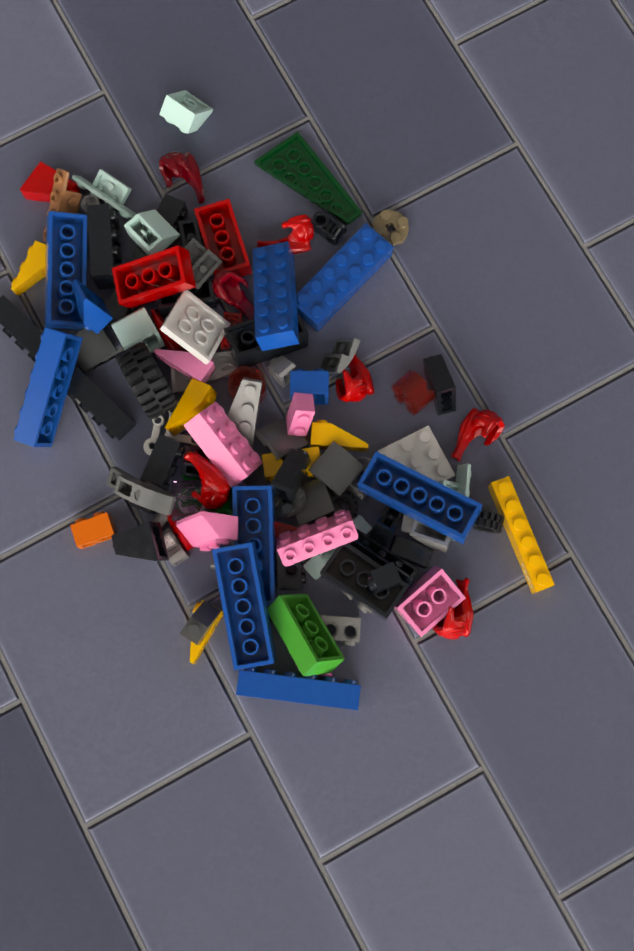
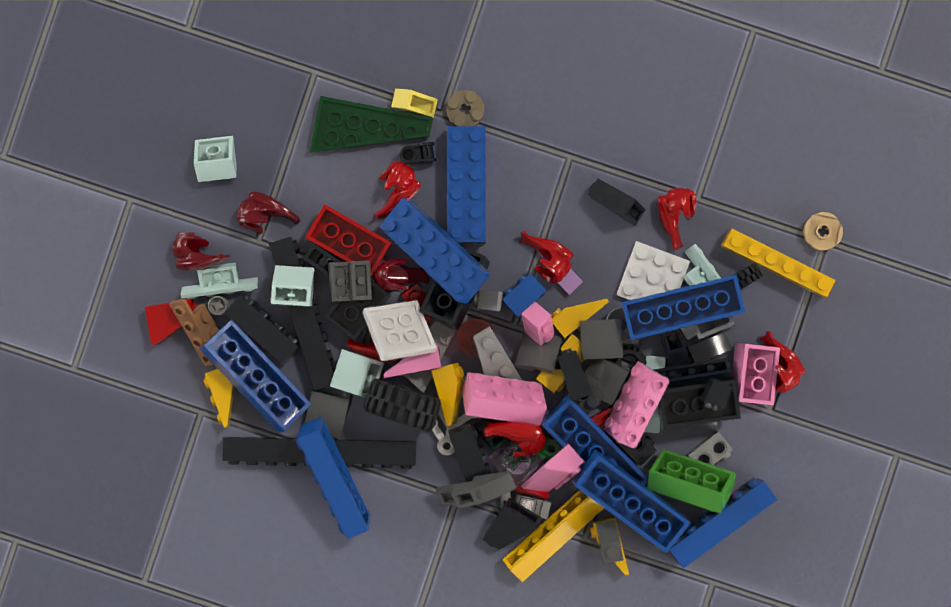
camera: 50 degrees left, 10 degrees up
(91, 308) = (305, 387): blue slope -> none
(93, 530) = (464, 546): orange brick -> none
(106, 154) = (188, 255): none -> dark red hair
(153, 277) = (333, 323): red brick -> none
(163, 581) = (552, 535): none -> yellow brick
(341, 356) = (524, 249): dark grey slope -> none
(352, 411) = (570, 282): none -> lavender tile
(359, 191) = (414, 102): none -> light yellow slope
(412, 392) = (603, 227): clear red brick -> none
(581, 533) = (828, 240): none -> tan plate

